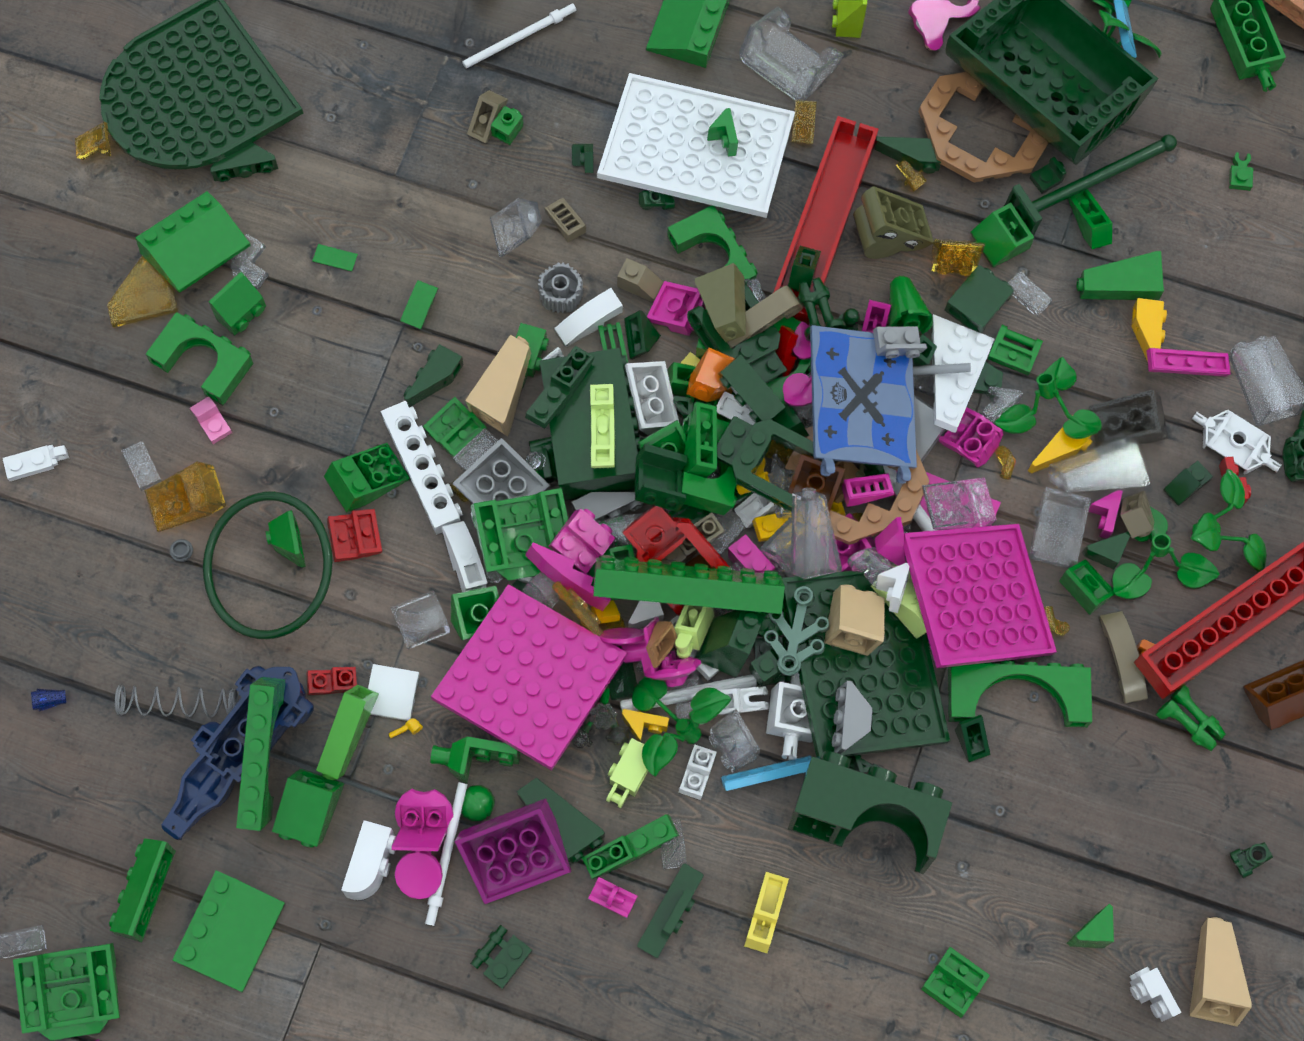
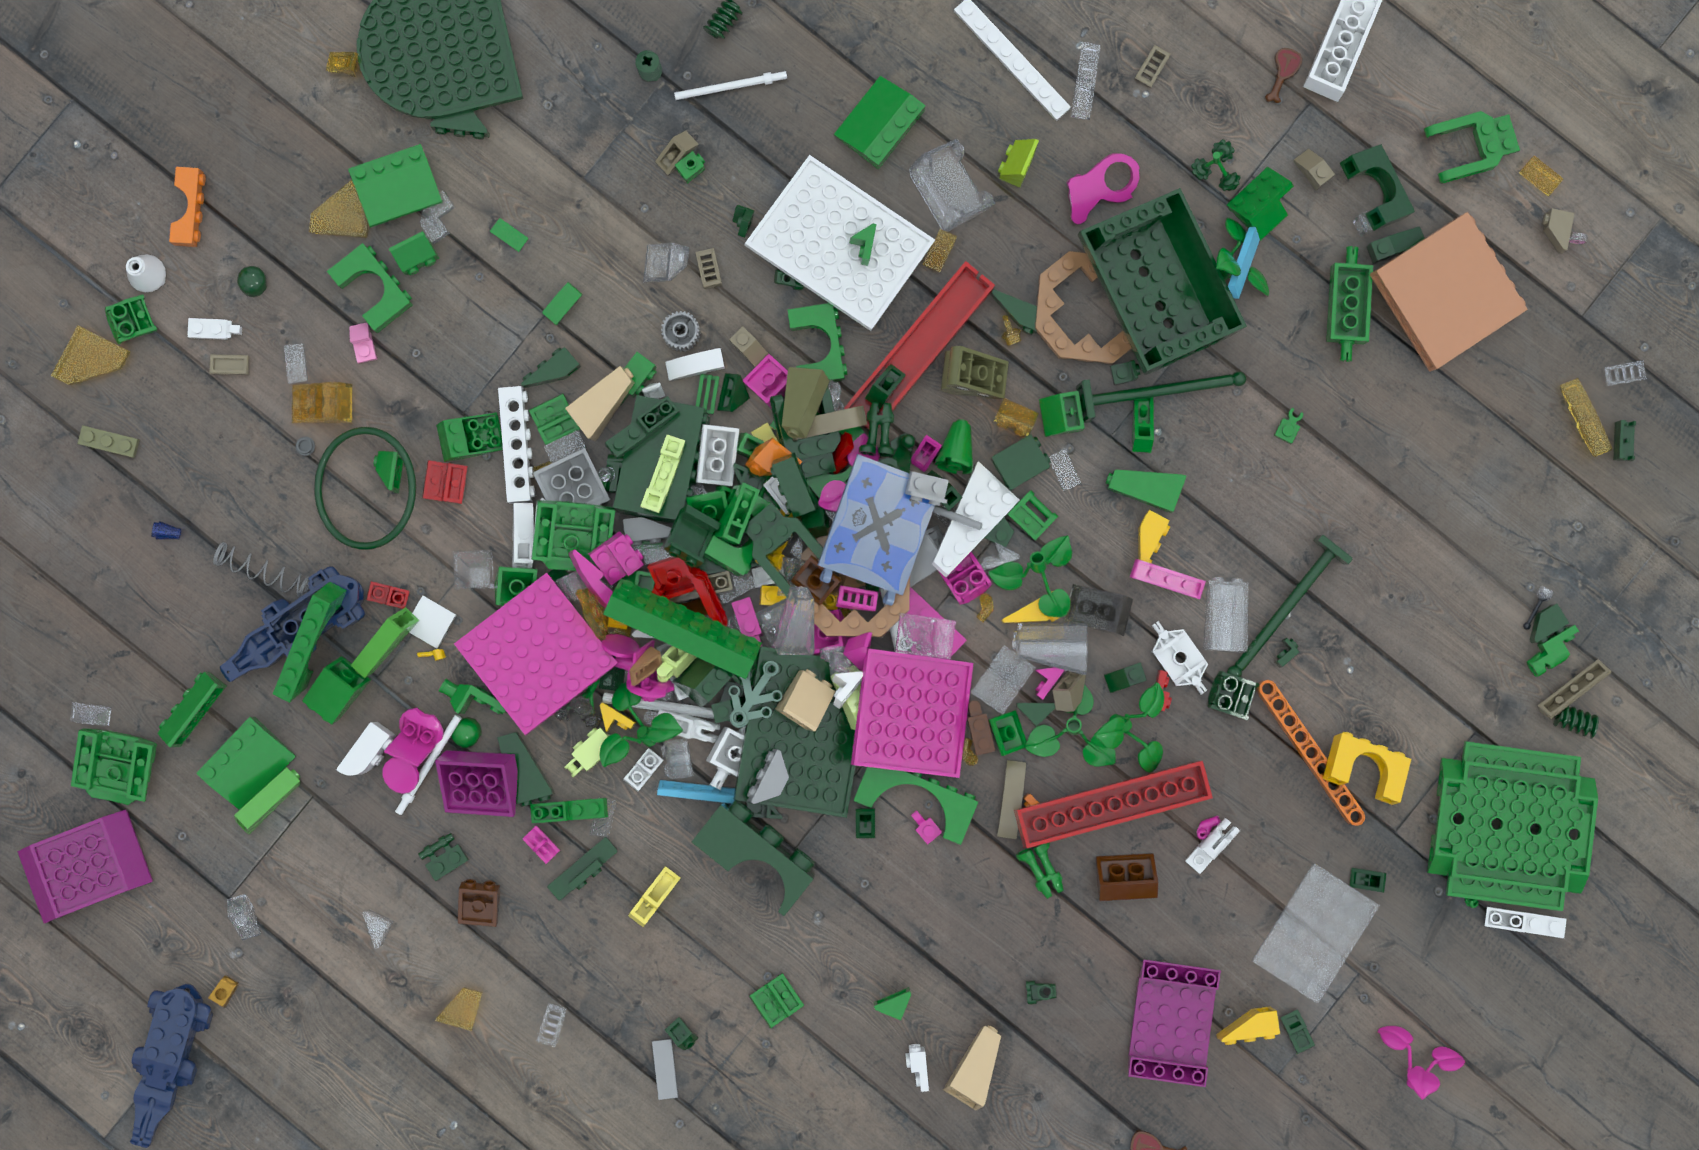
camera: 25 degrees right, 15 degrees up
(63, 396) = (252, 281): none -> dark green hair
(65, 493) = (229, 364): none -> dark tan tile
(267, 965) = (267, 800): none -> bright green slope
(426, 39) = (648, 65): none -> dark green piece
(563, 995) = (478, 903): none -> reddish brown plate
(1044, 722) = (927, 828): none -> dark pink plate
(1057, 591) = (979, 729): none -> reddish brown brick

